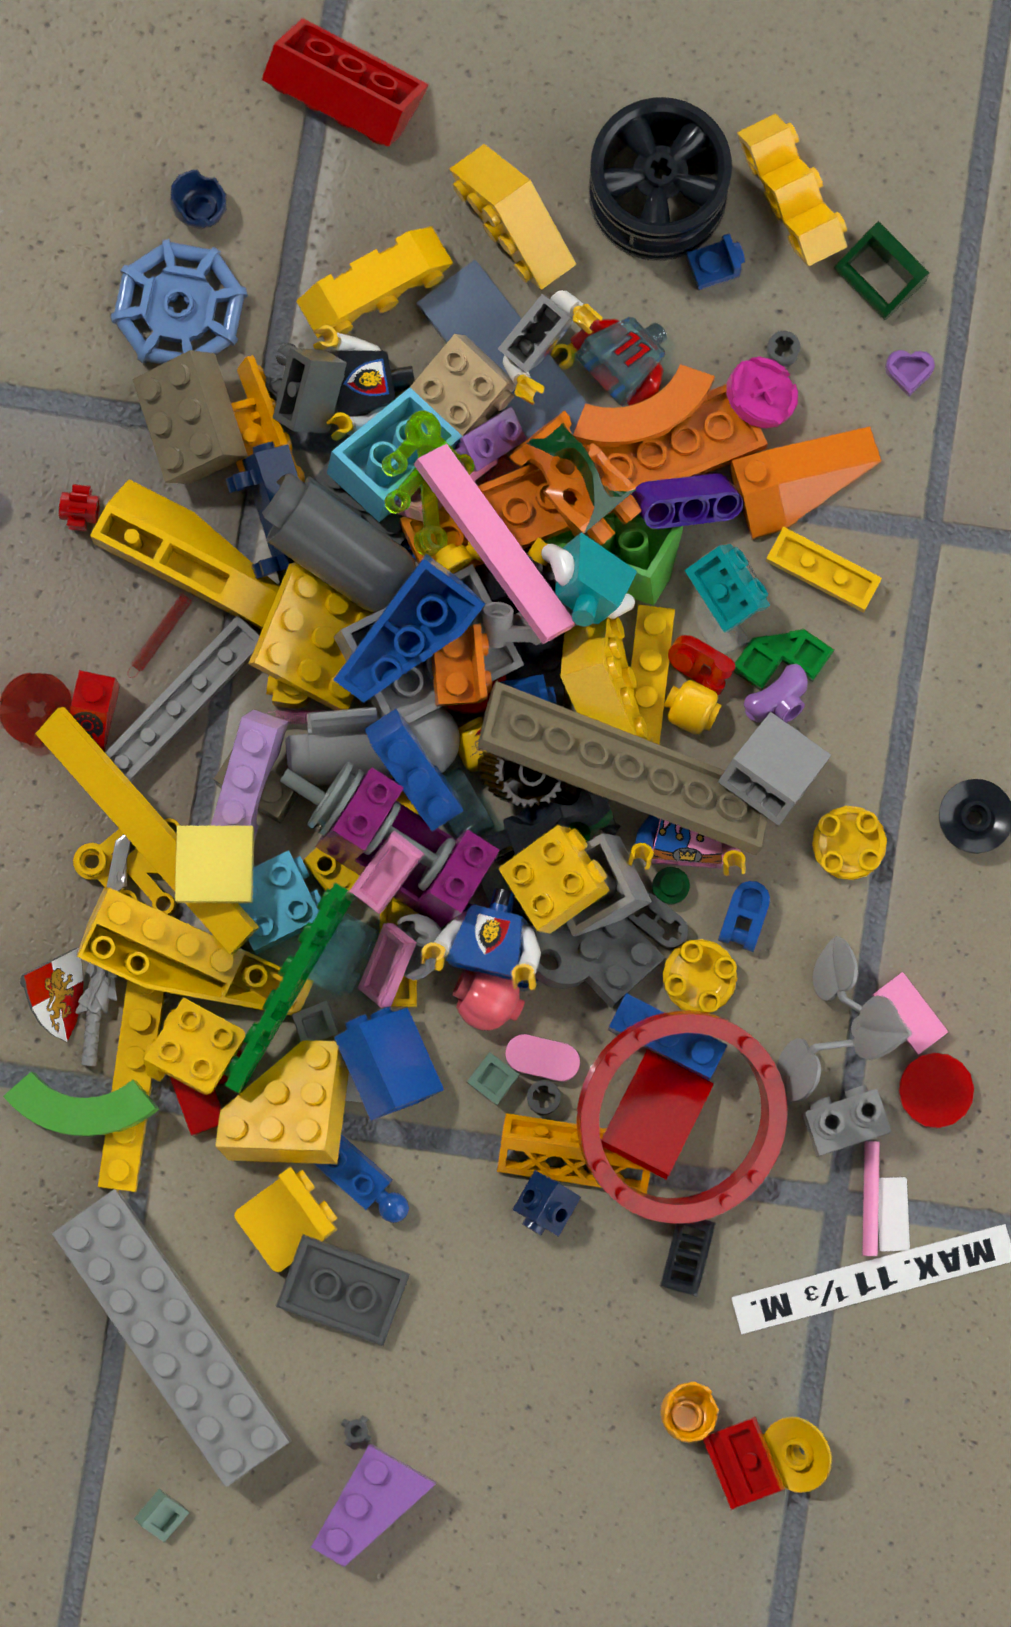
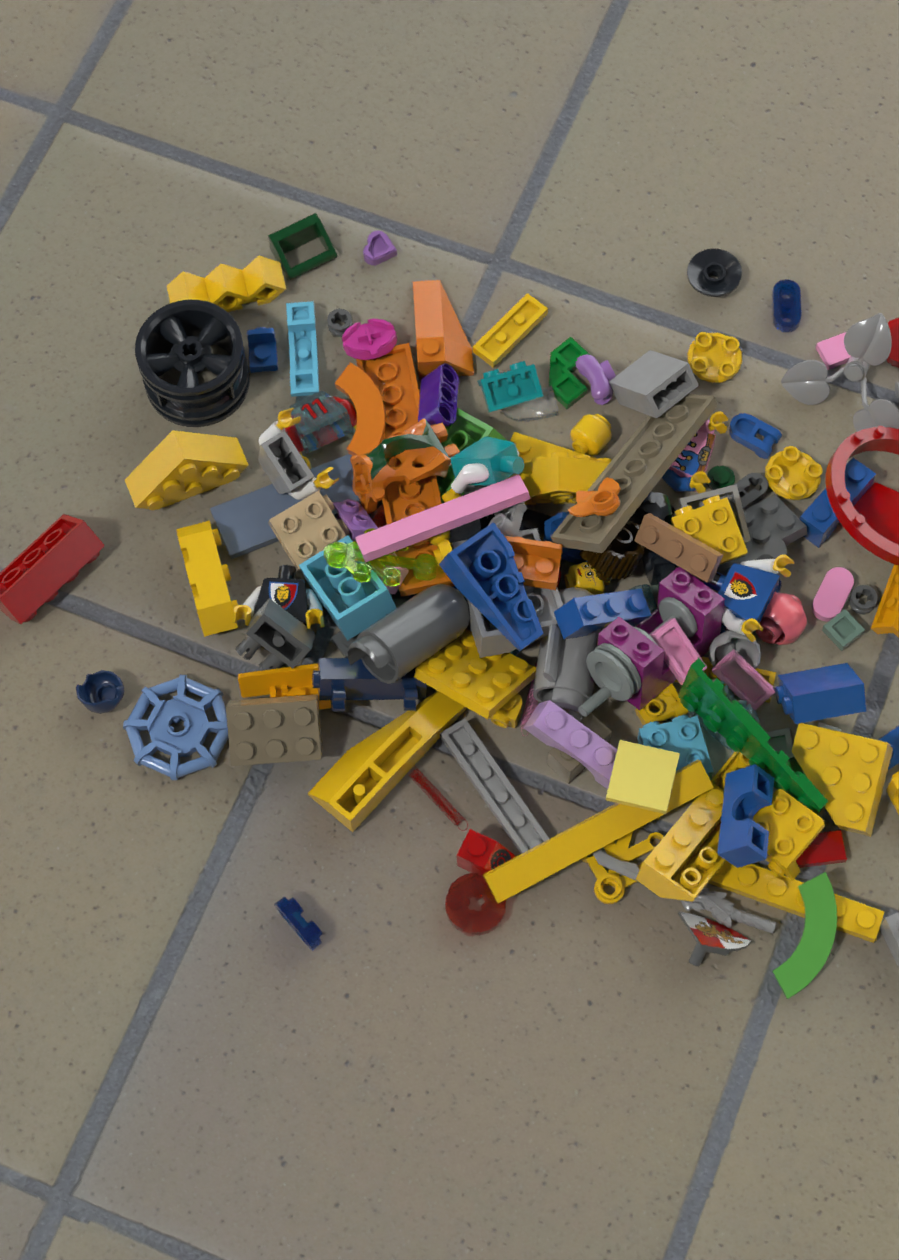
camera: 75 degrees left, 15 degrees down
(79, 507) = (321, 833): red gear -> none
(220, 990) = (740, 837): none -> blue arch
(520, 842) = (678, 547): none -> medium nougat plate
(555, 726) = (600, 502): none -> orange plate
(690, 655) = (552, 427): red plate -> none
(726, 314) = (302, 349): none -> medium azure slope
(950, 922) = (786, 307): none -> clear blue plate

